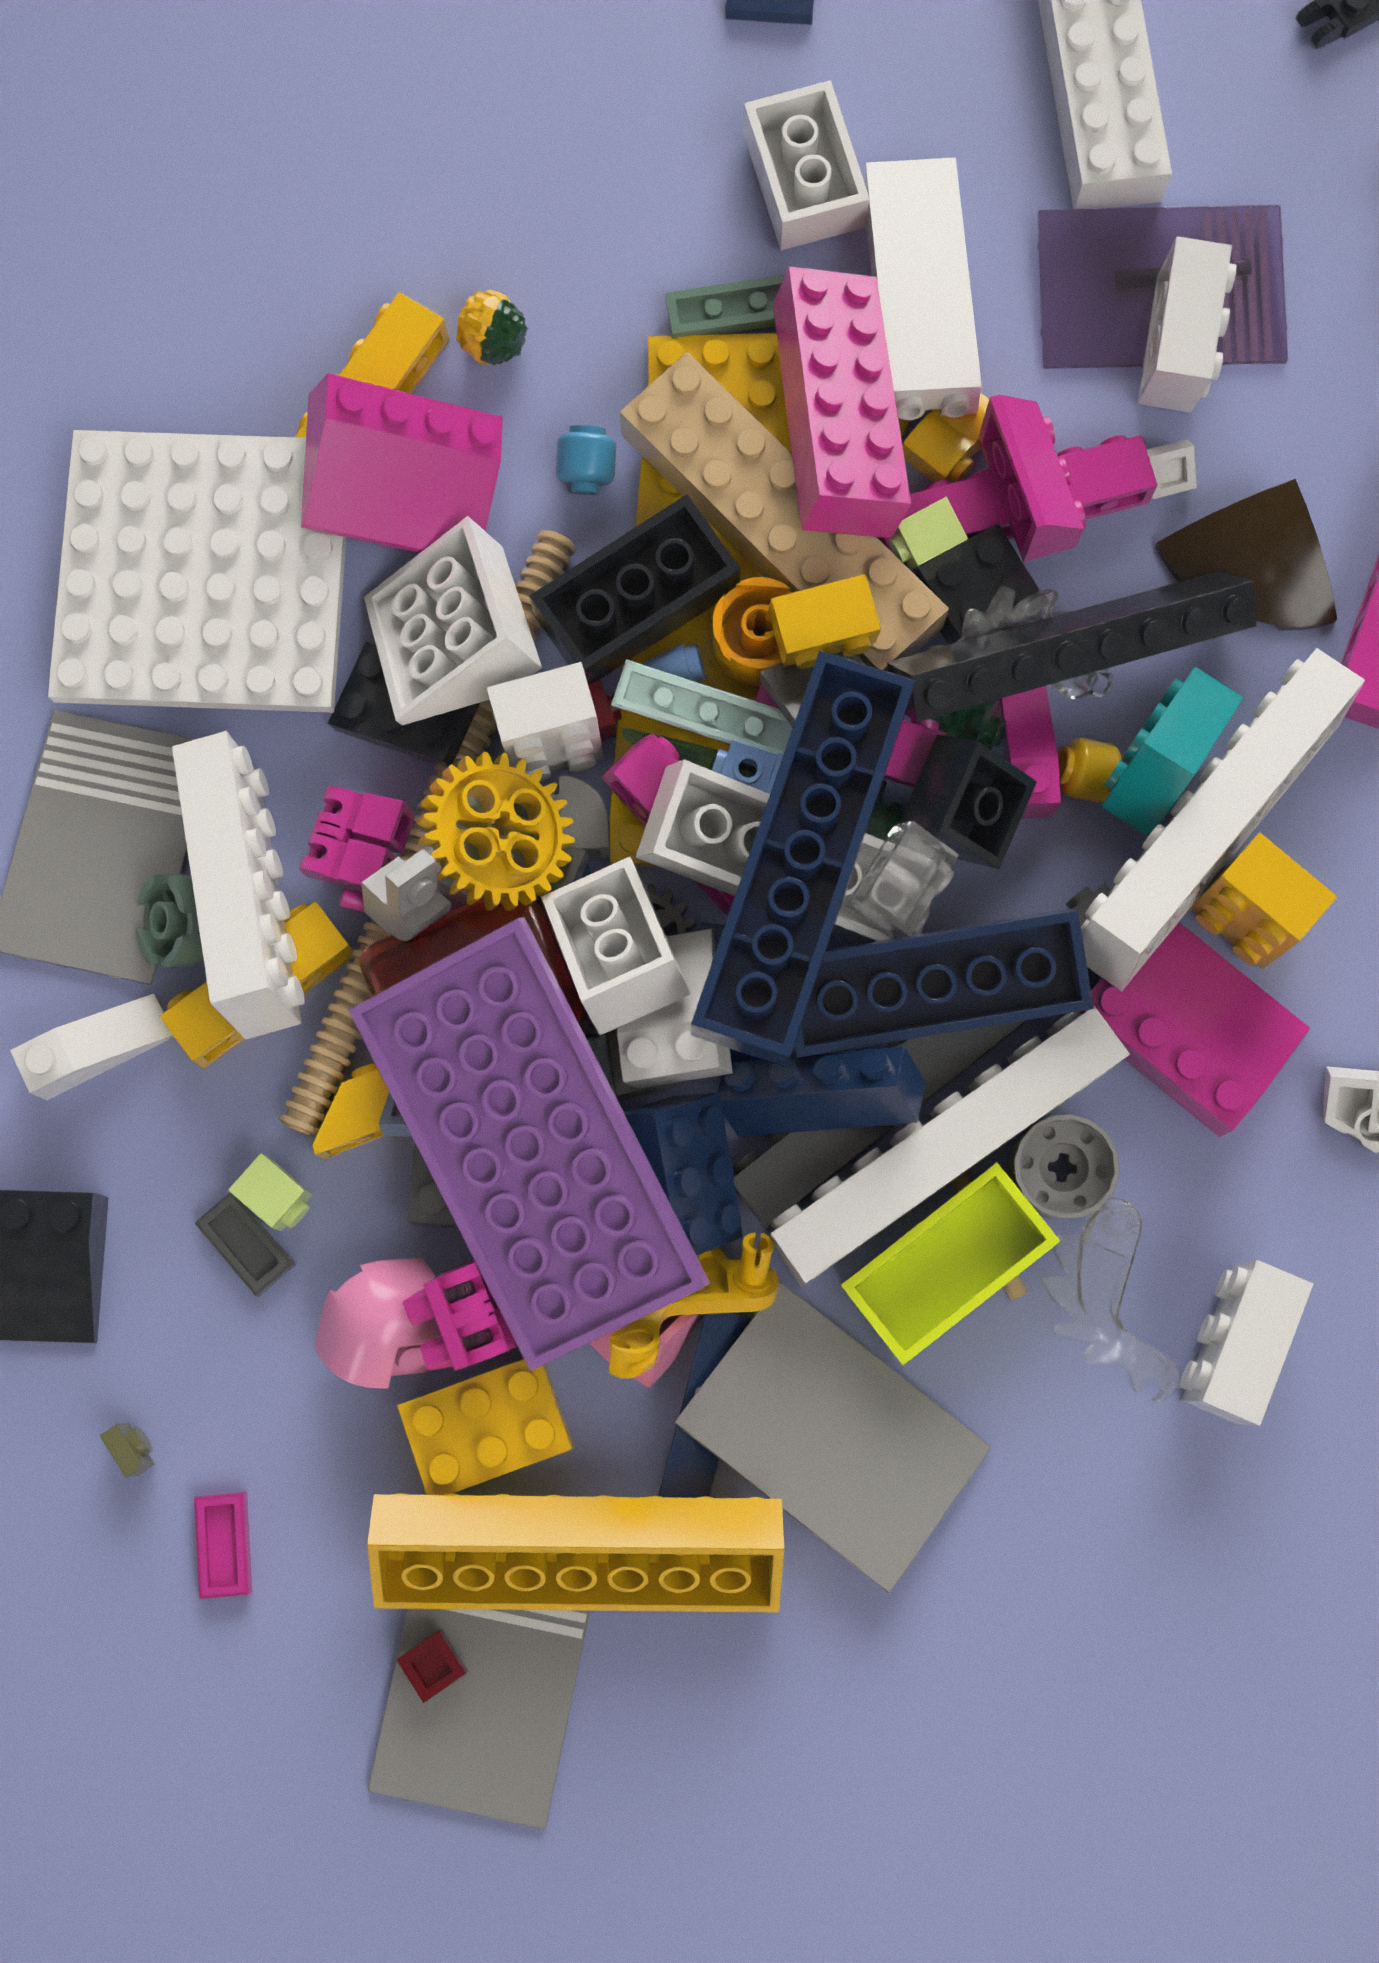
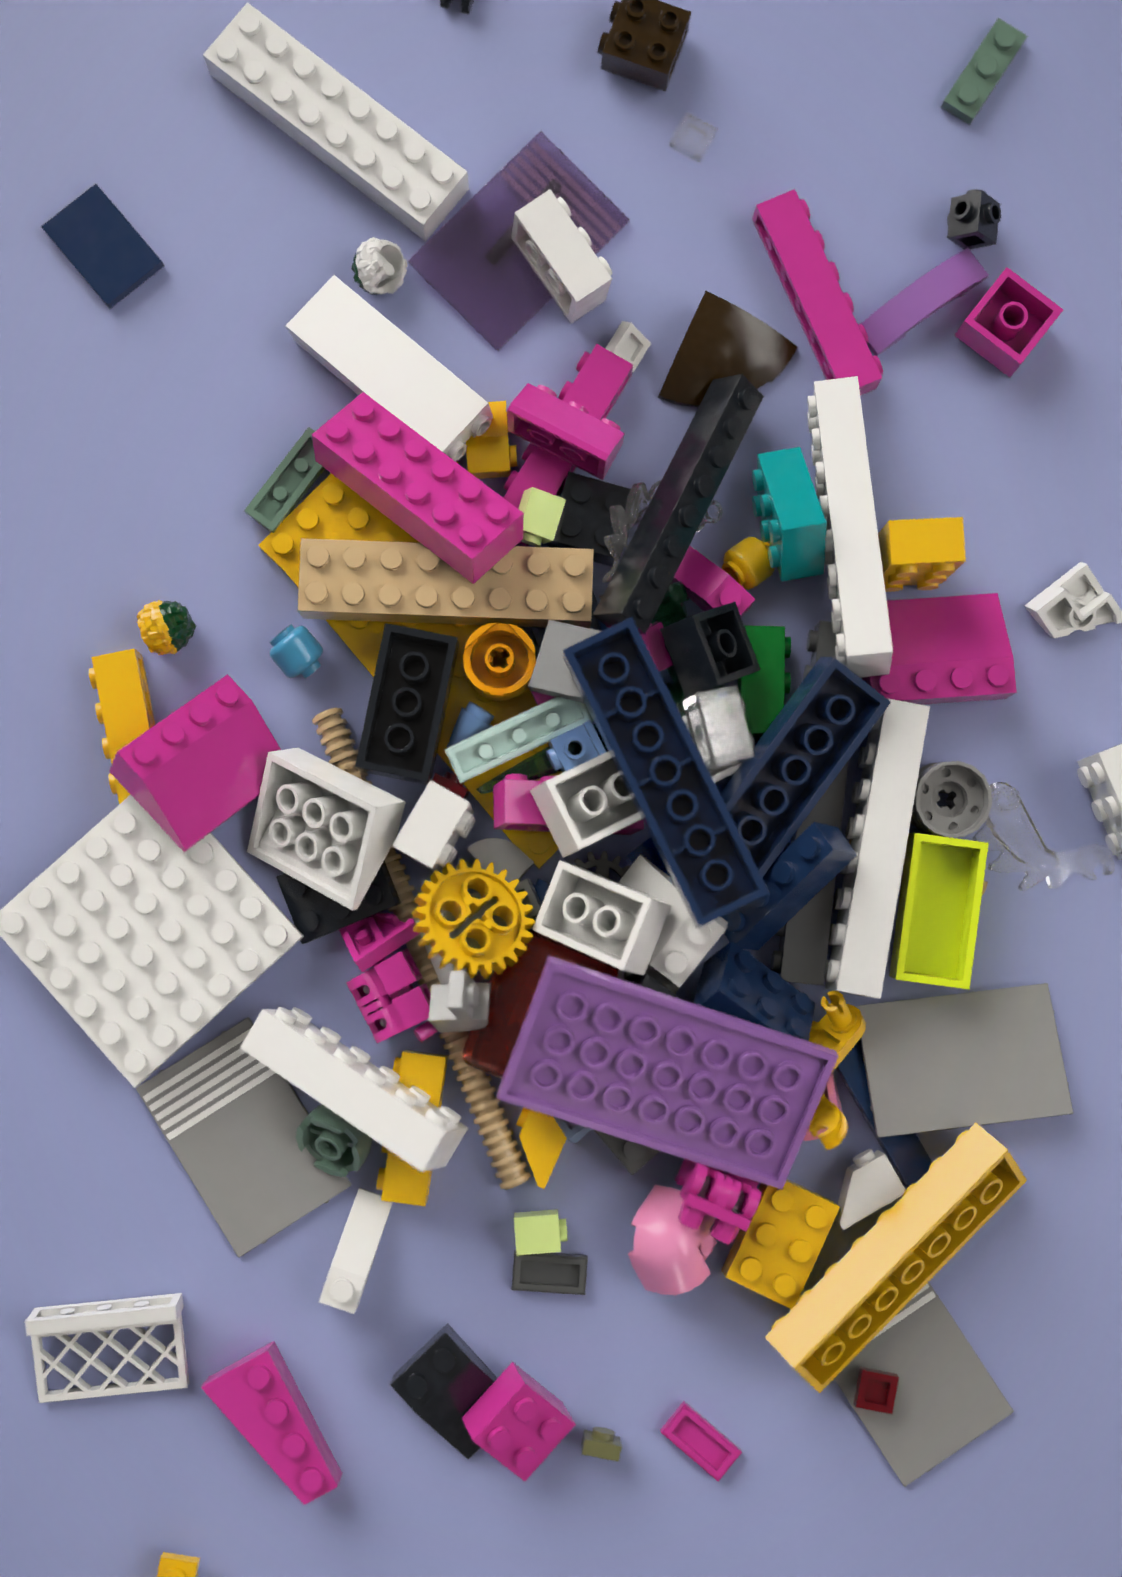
camera: 55 degrees left, 5 degrees up
(73, 1345) = (518, 1421): none -> dark pink brick
(392, 774) = (376, 938): none -> dark pink wing
(619, 1463) = (867, 1187): none -> white slope
(805, 165) = (250, 358): white brick -> none
(824, 619) = (539, 625): yellow brick -> none
(999, 894) = (765, 689): none -> green brick
(1005, 189) = (379, 266): none -> white piece

